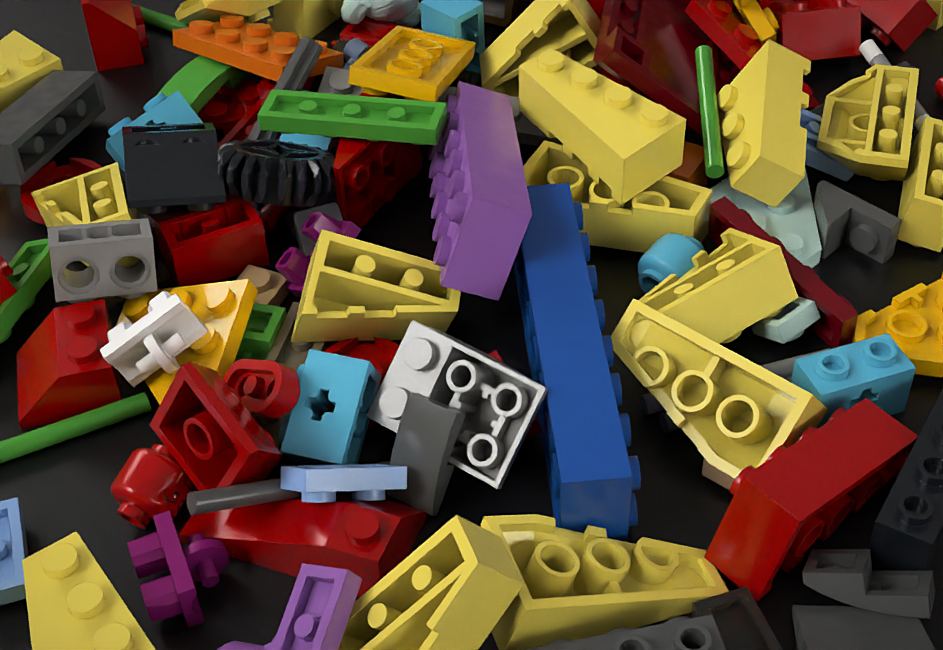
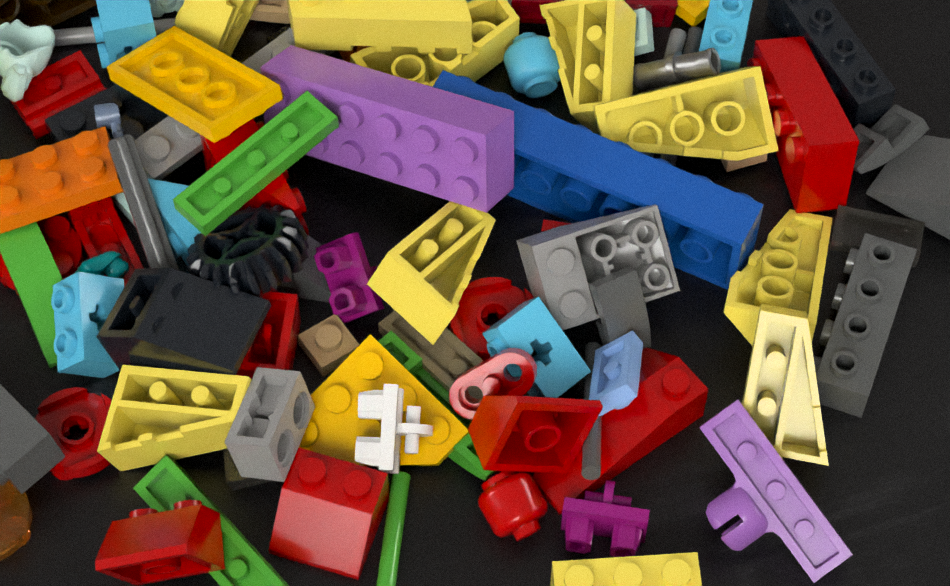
camera: 60 degrees left, 15 degrees up
(227, 127) = (106, 263): none -> teal arm
(772, 356) = (676, 68): none -> flat silver pin

